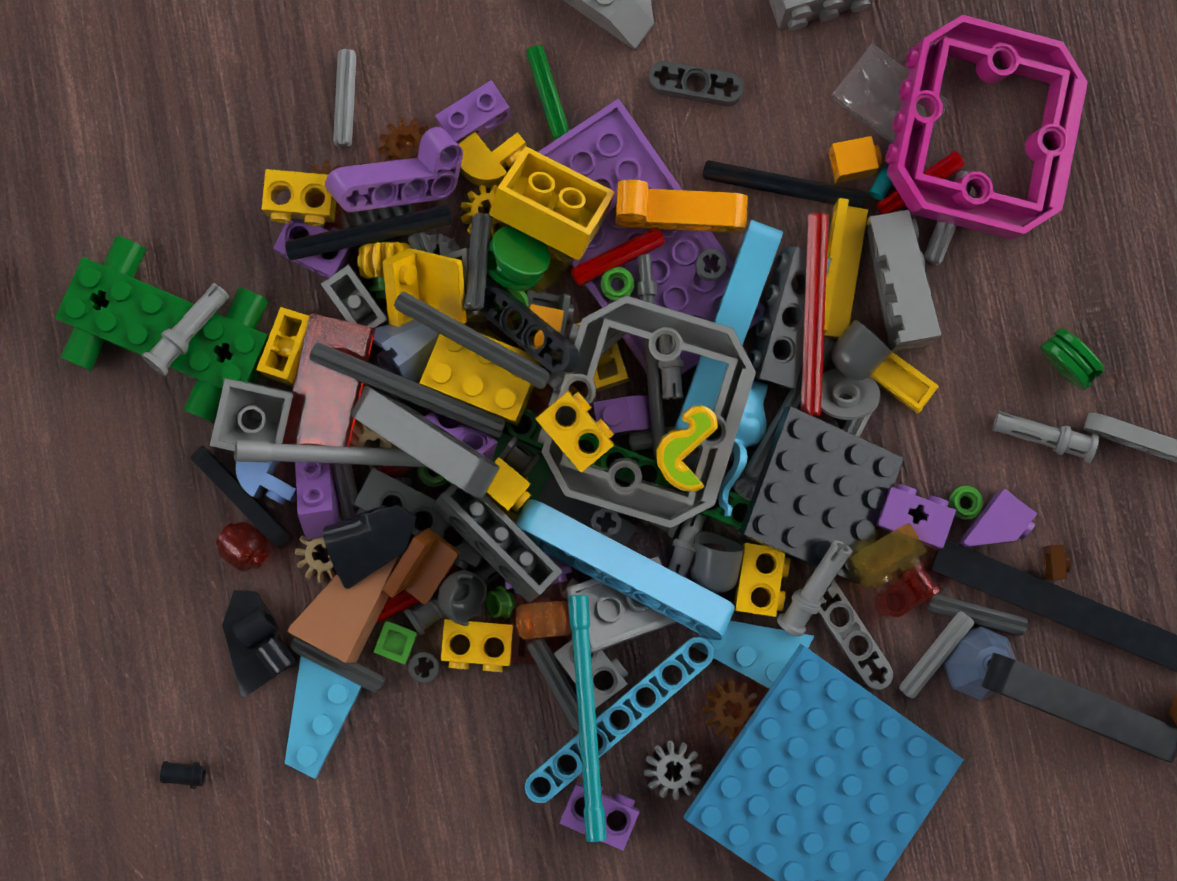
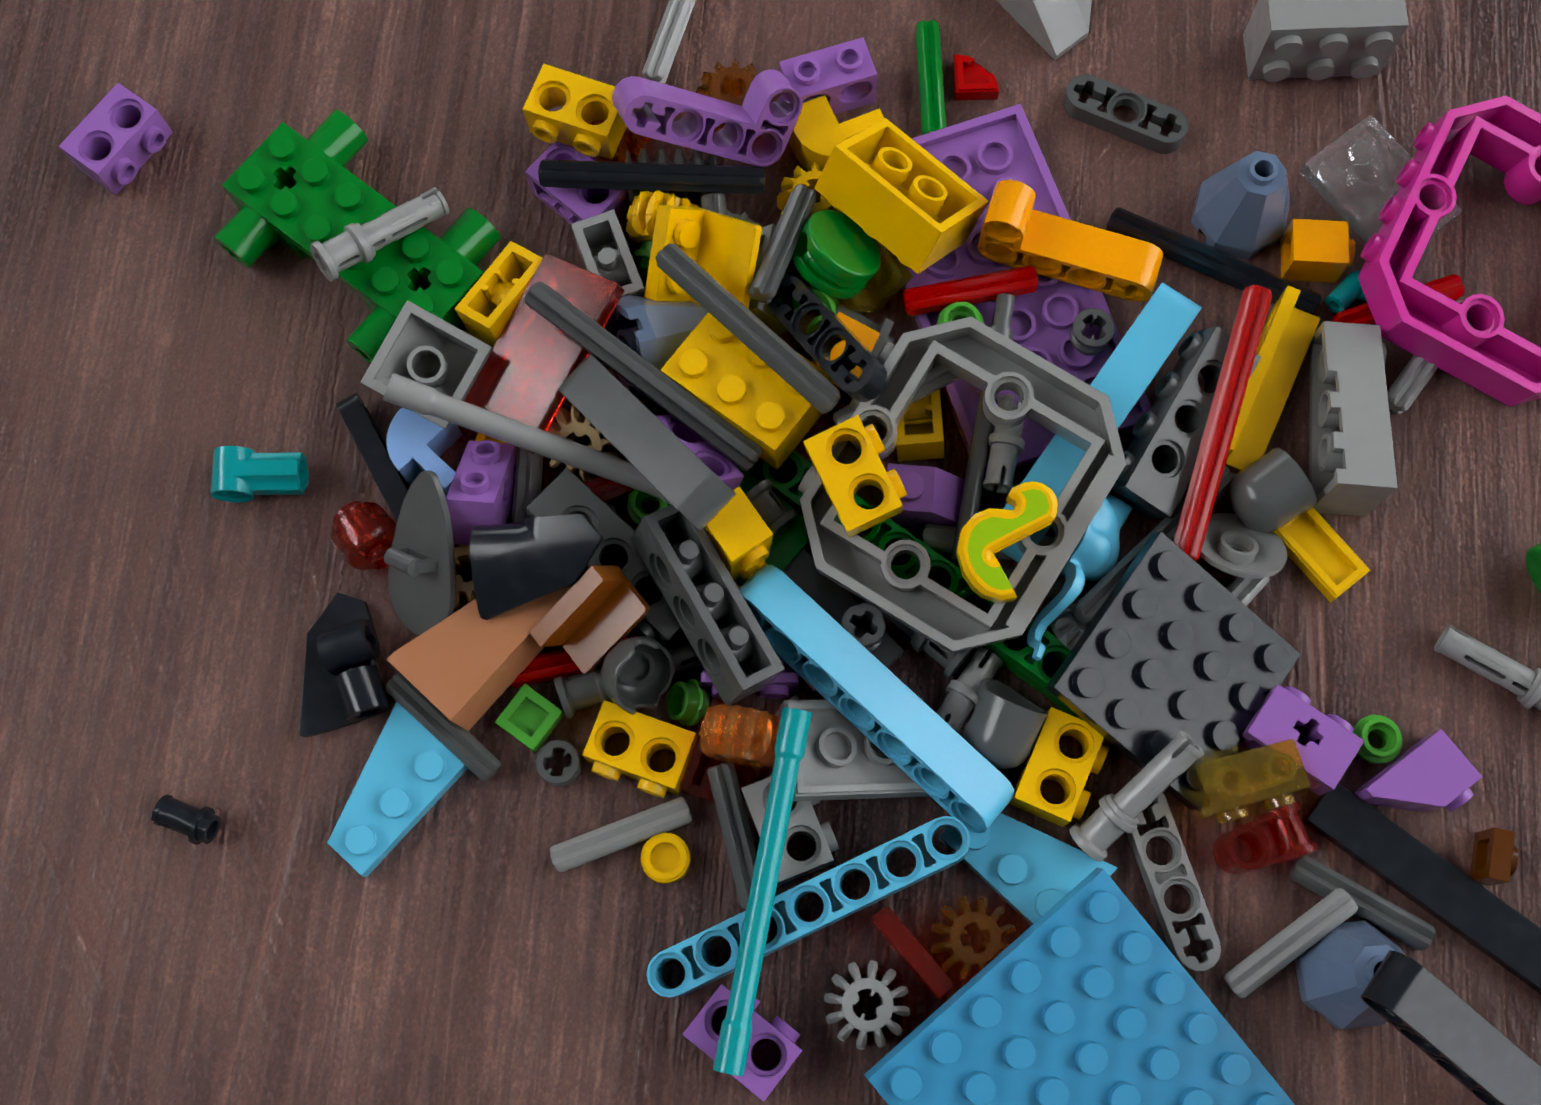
camera: 20 degrees right, 10 degrees down
(141, 523) = (242, 473): none -> teal piece
(290, 555) = (422, 557): none -> dark grey shield
(480, 703) = (620, 834): none -> light grey axle
(514, 710) = (665, 858): none -> yellow tile
(578, 83) = (972, 80): none -> red tile
(693, 728) = (912, 952): none -> clear red tile
(795, 139) = (1244, 206): none -> sand blue cone

